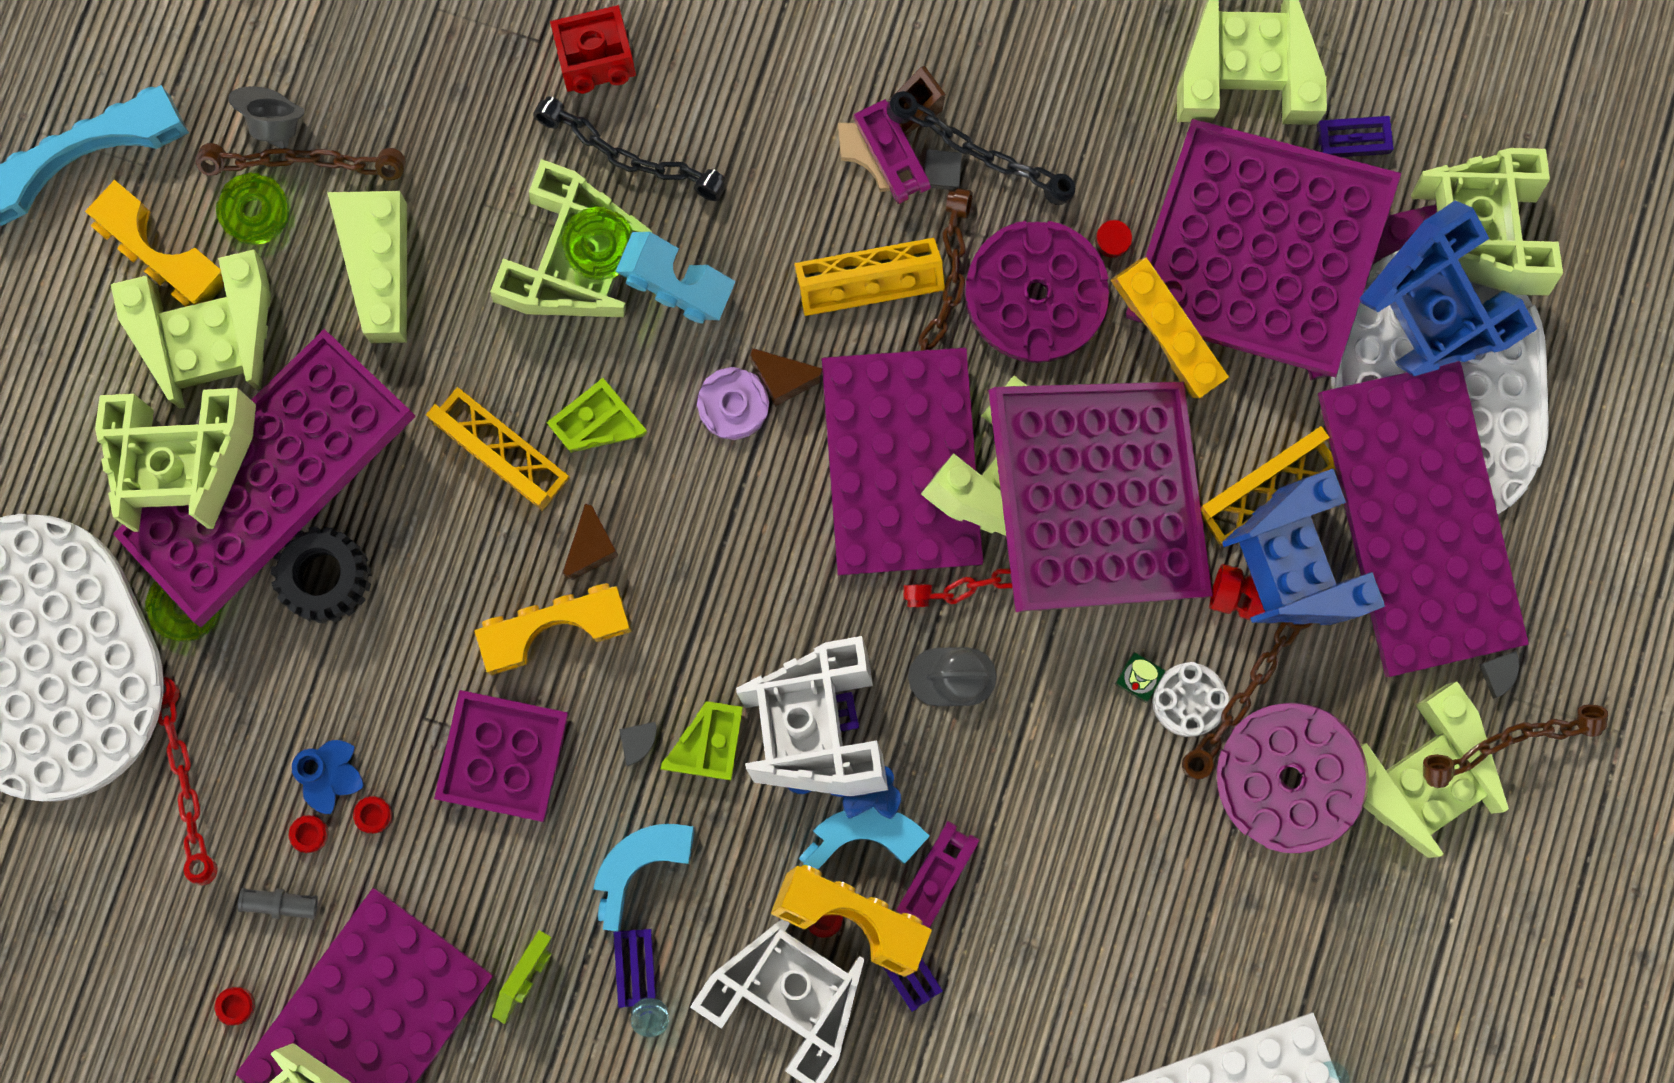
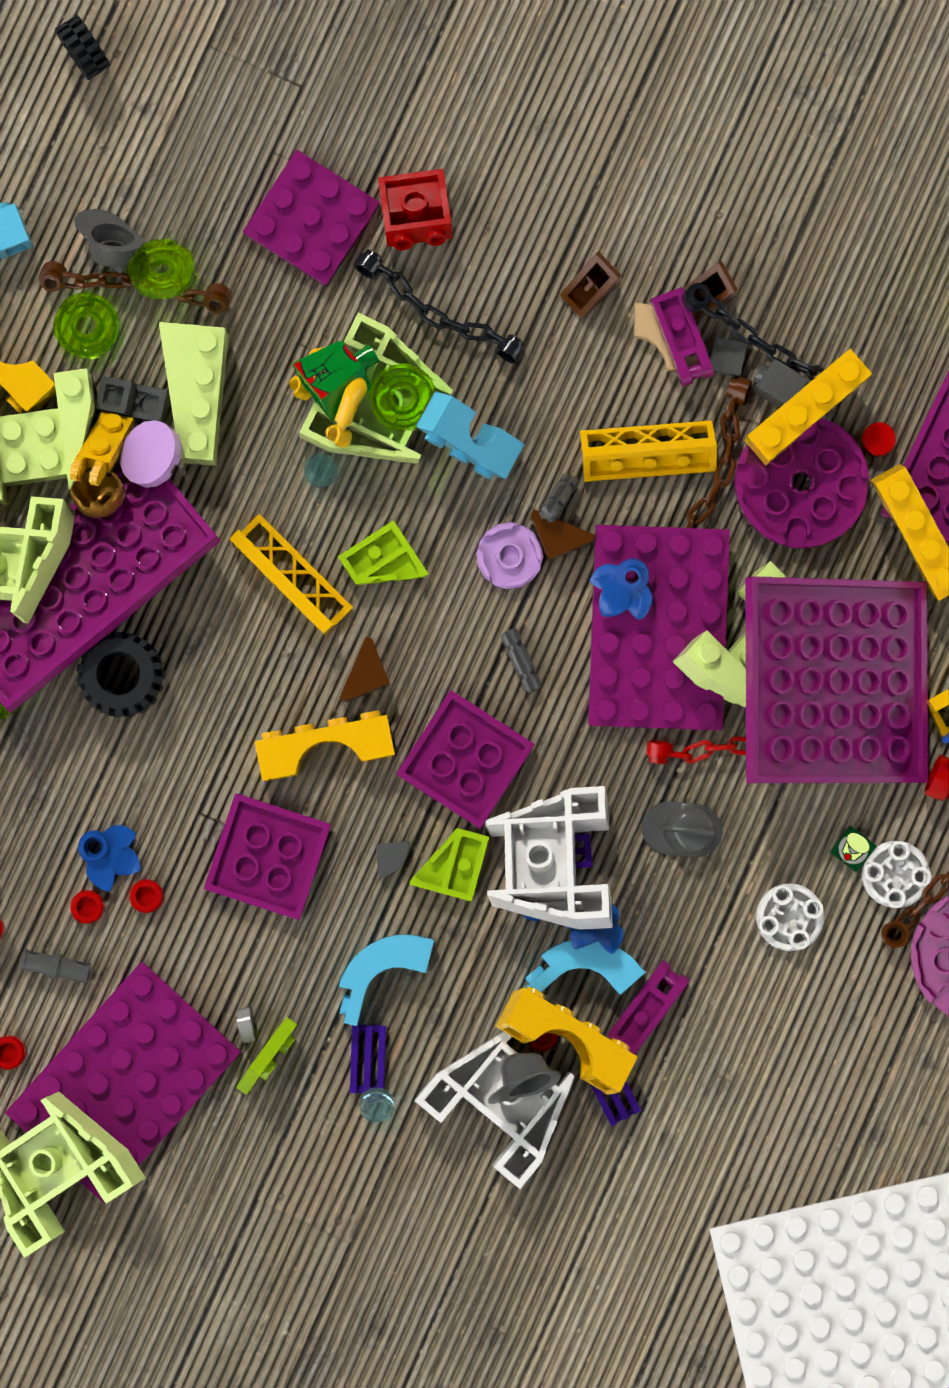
camera: 10 degrees right, 5 degrees up
(277, 381) = (98, 500): none -> pearl gold hair
(278, 332) = (102, 447): none -> yellow hinge
(309, 281) = (132, 400): none -> dark grey slope
(330, 154) = (164, 284): none -> clear neon green tile
(331, 332) = (150, 453): none -> lavender tile
(483, 71) = (311, 218): none -> magenta plate
(496, 945) = (246, 1025): none -> light grey tile
(519, 334) = (320, 470): none -> clear light blue tile
(524, 235) = (336, 384): none -> torso
(707, 626) = (465, 759): none -> magenta plate
(757, 513) = (521, 660): none -> dark grey axle
(778, 333) = (558, 497): none -> dark grey axle
(790, 108) = (591, 285): none -> reddish brown slope
(808, 965) = (524, 1076): none -> dark grey piece
(856, 426) = (620, 592): none -> blue plate
(1001, 191) = (778, 383): none -> dark grey brick
(1033, 207) = (807, 406): none -> yellow arch
(1080, 759) = (789, 917): none -> white tile

